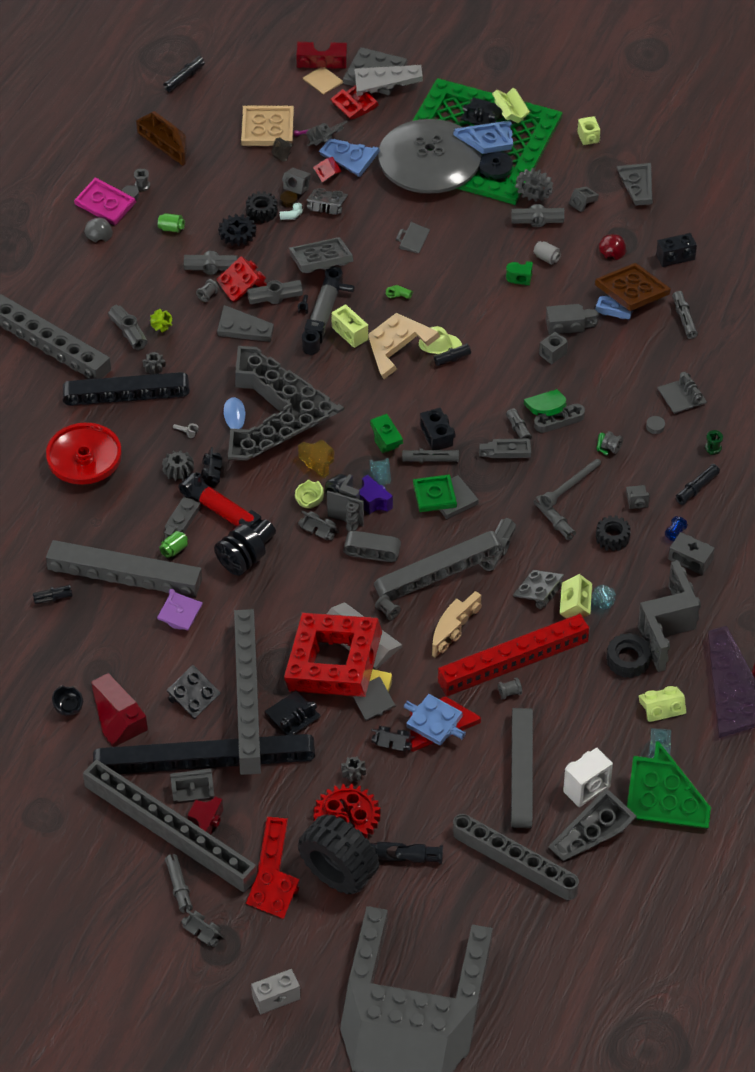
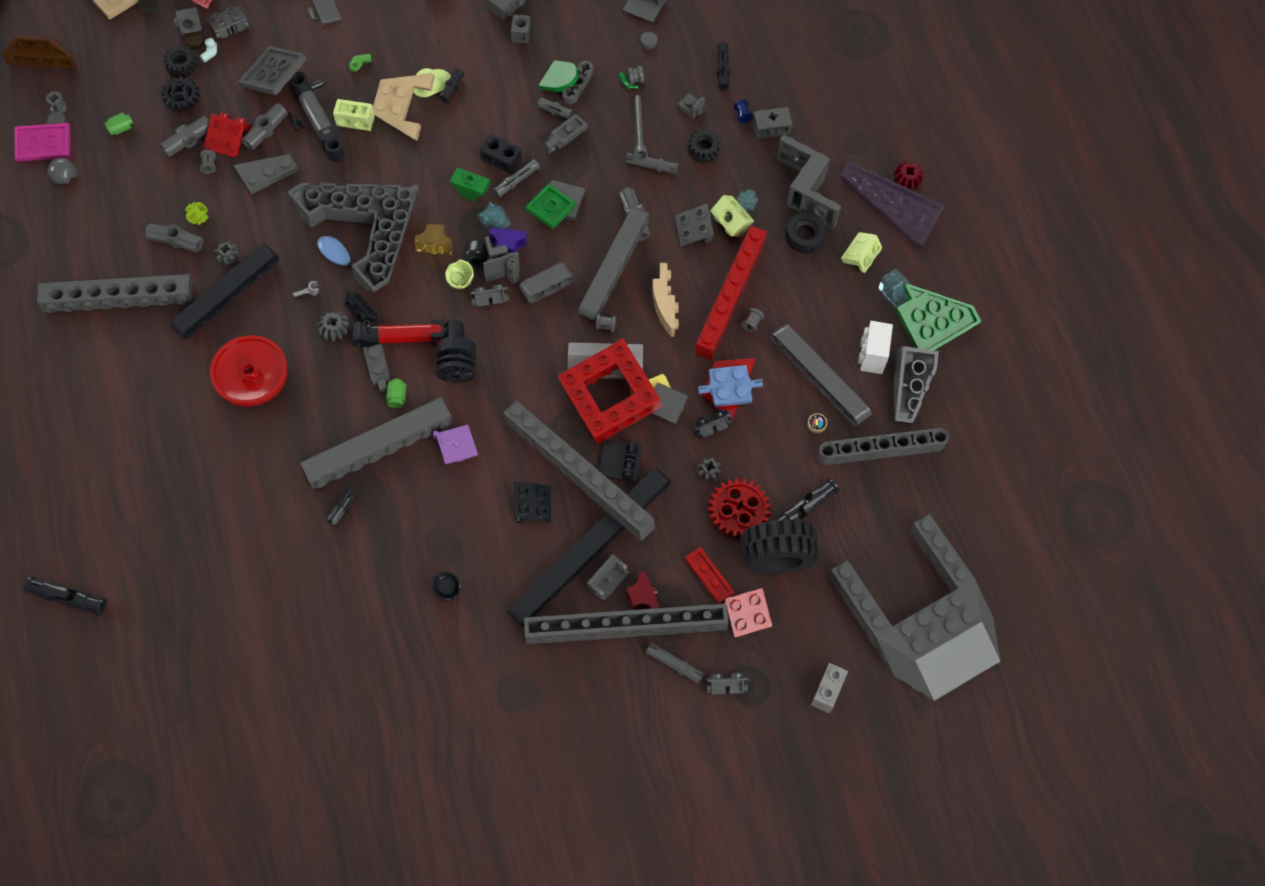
camera: 45 degrees left, 15 degrees up
(118, 711) = (490, 563): dark red wedge -> none
(481, 802) = (817, 423): none -> tile
(715, 443) = (700, 30): dark green bush -> none

